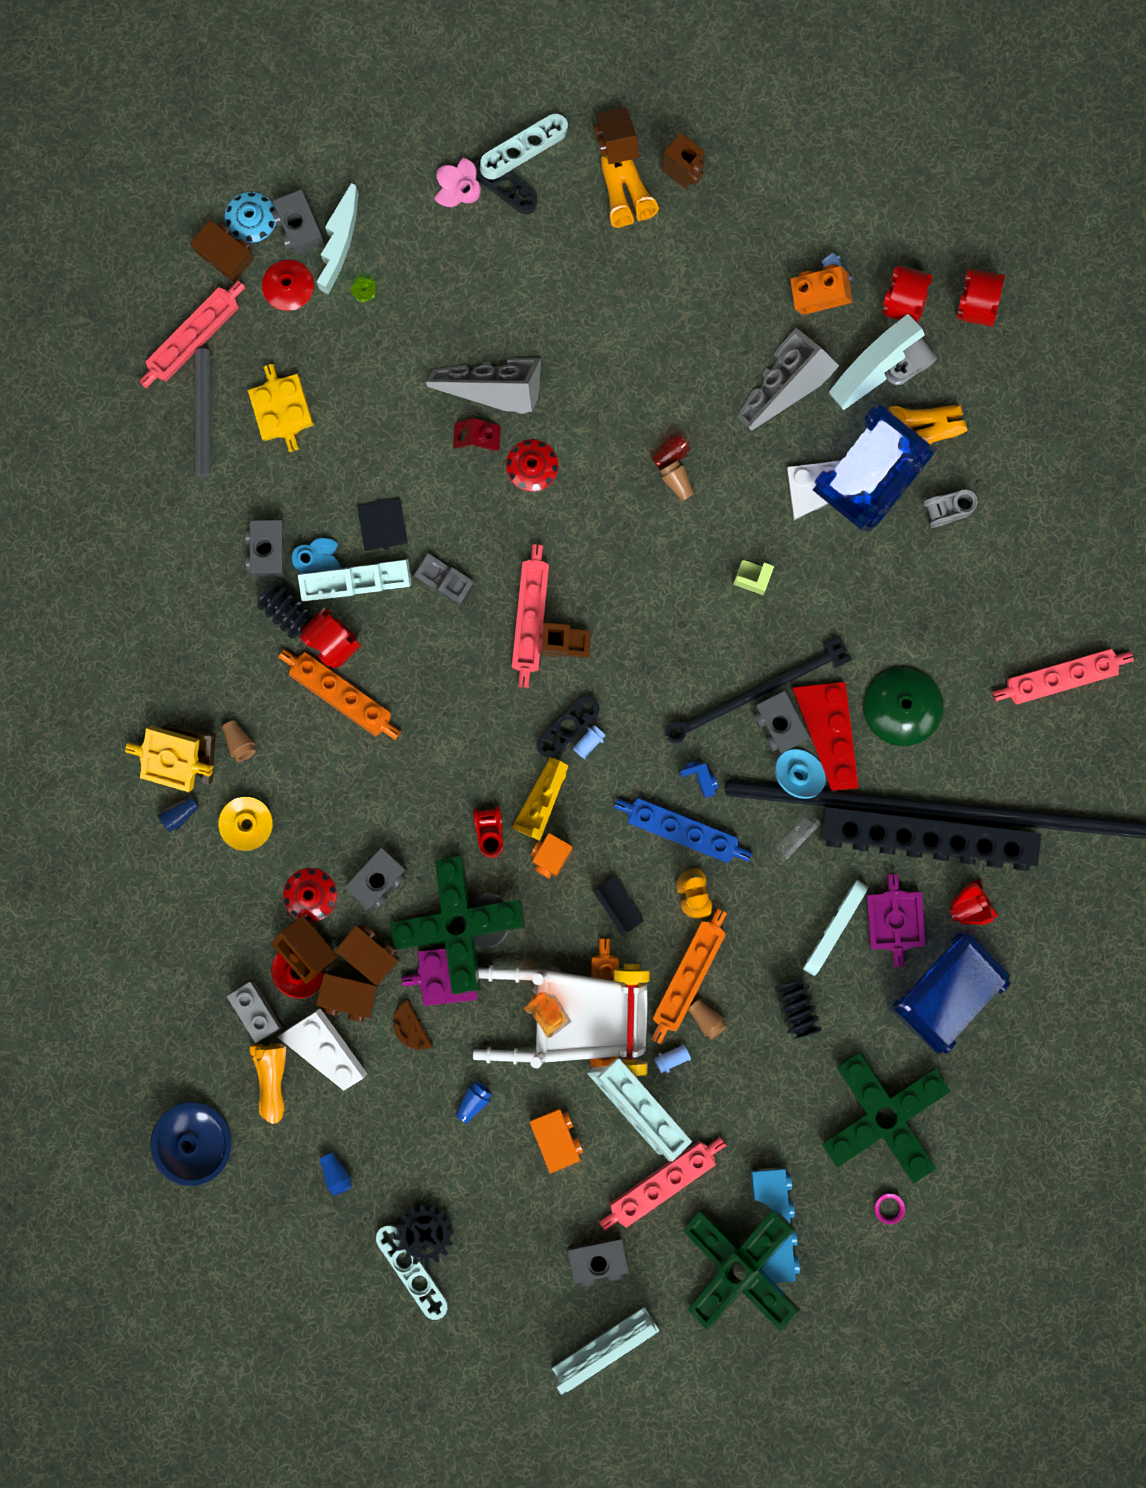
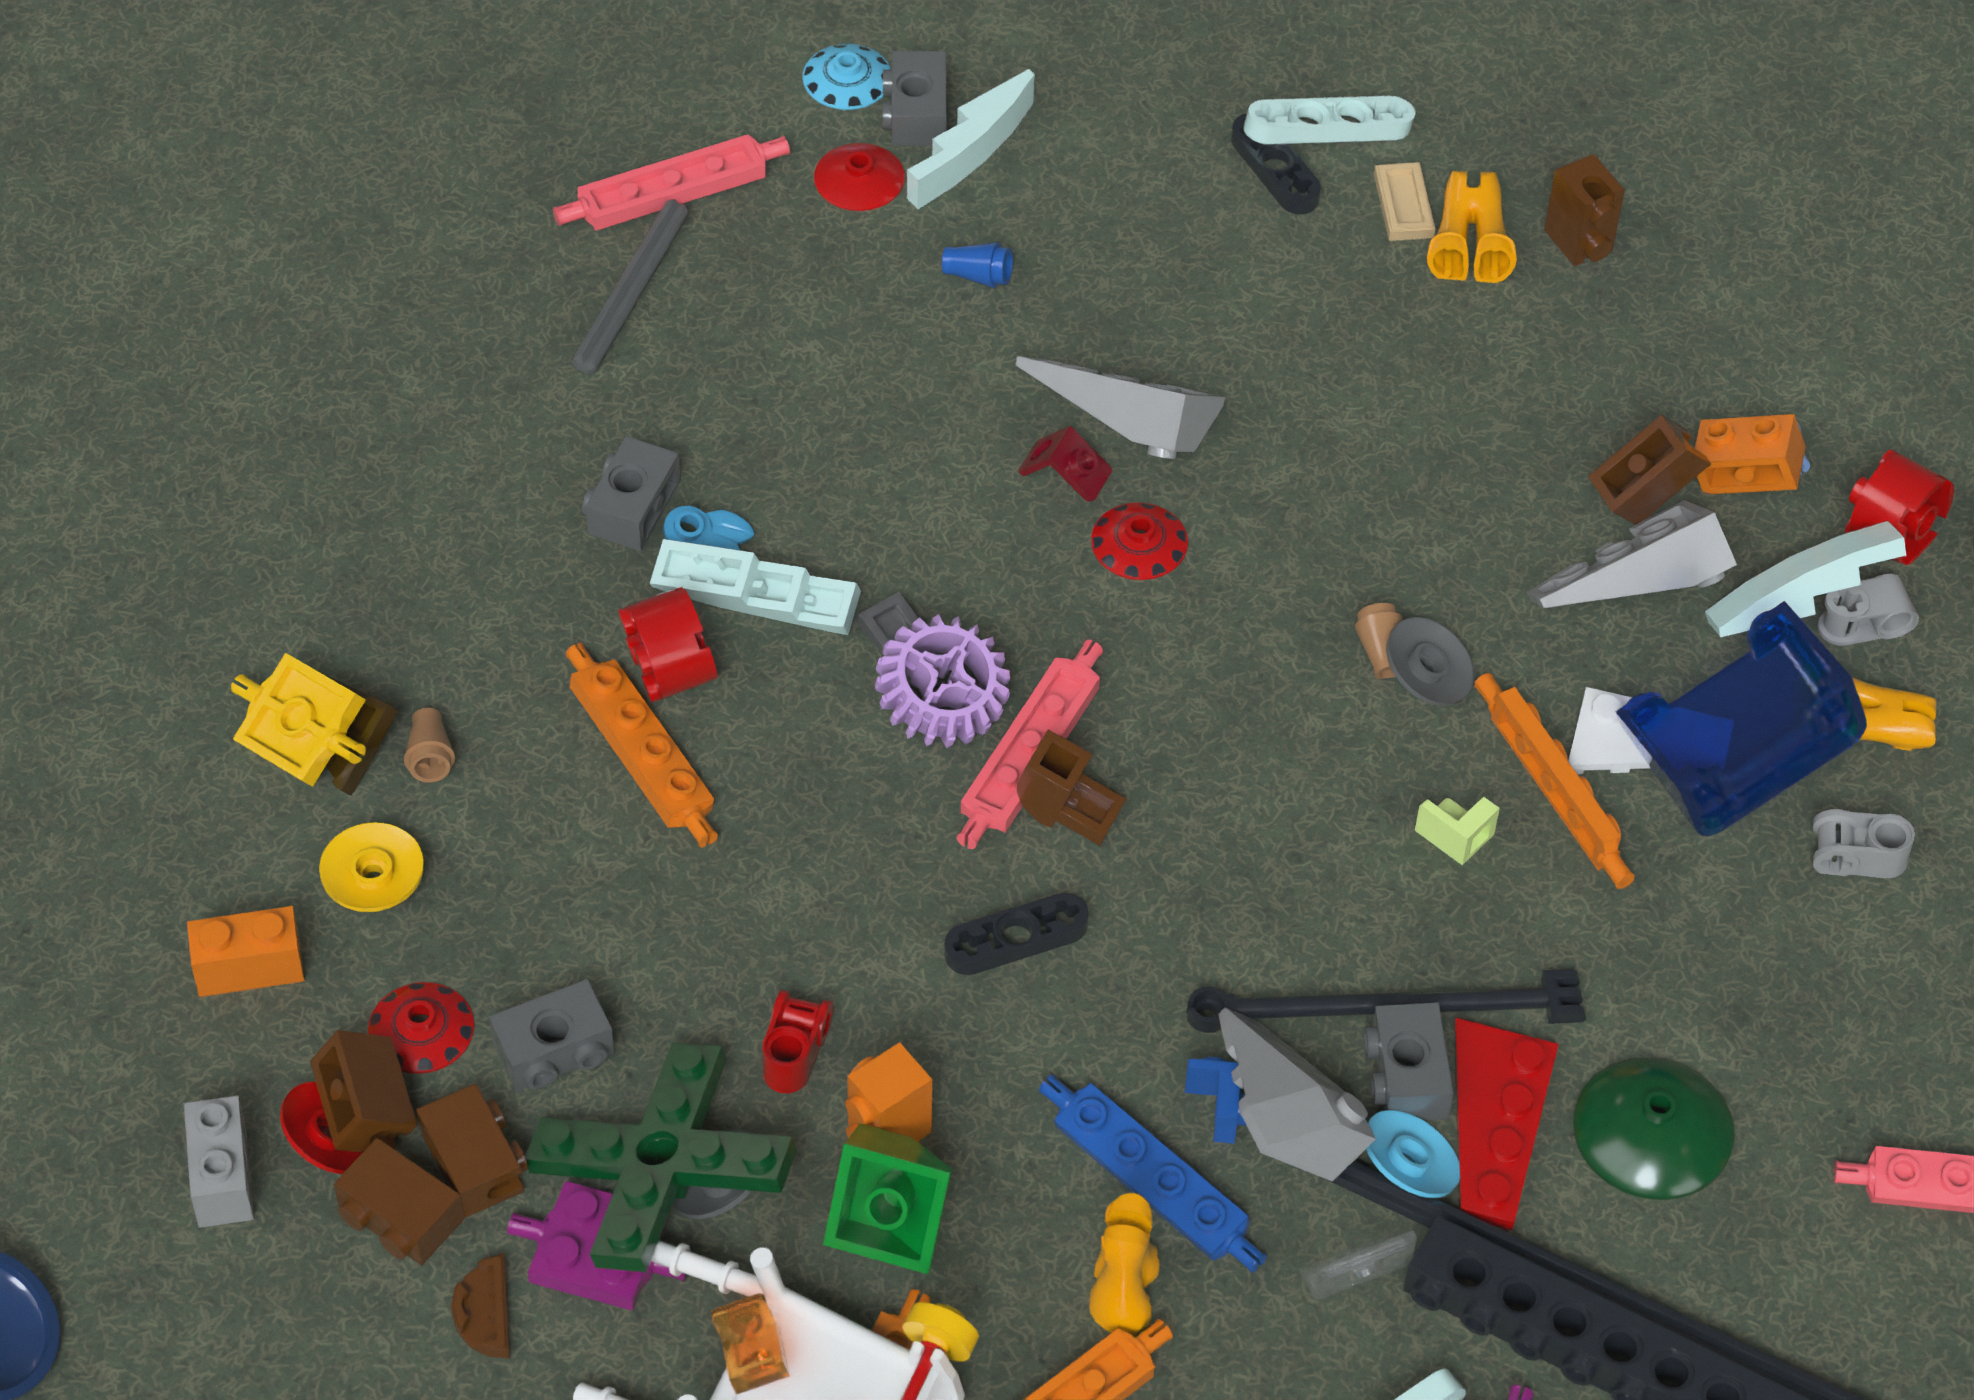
camera: 20 degrees right, 30 degrees down
(177, 813) = (263, 812): dark blue cone -> none
(209, 896) = (245, 951): none -> orange brick
(222, 250) = (779, 93): reddish brown brick -> none
(270, 1067) = (197, 1247): light orange piece -> none
(281, 407) = (761, 322): yellow plate -> none
(283, 611) = (609, 578): black piece -> none
(324, 1048) = (308, 1273): white wing -> none
(363, 296) = (978, 225): clear neon green plate -> none
(379, 322) = (981, 263): none -> blue cone
(382, 524) = (843, 534): black piece -> none
(454, 182) = (1199, 136): bright pink plate -> none
(497, 604) = (913, 656): none -> lavender gear
(540, 802) = (917, 1017): yellow wing -> none
(575, 907) = (888, 1199): none -> green slope
(582, 183) = (1404, 201): none -> tan tile
(589, 741) = (1043, 968): light blue pin -> none
(616, 135) = (1486, 145): reddish brown brick -> none
(618, 905) = (972, 1252): black panel -> none
(671, 451) = (1397, 588): clear red cone -> none
(713, 480) = (1430, 661): none -> dark grey dish
(743, 781) = (1291, 1104): none -> light grey wedge
(776, 325) = (1648, 470): none -> reddish brown brick
(785, 523) = (1550, 769): none -> orange plate

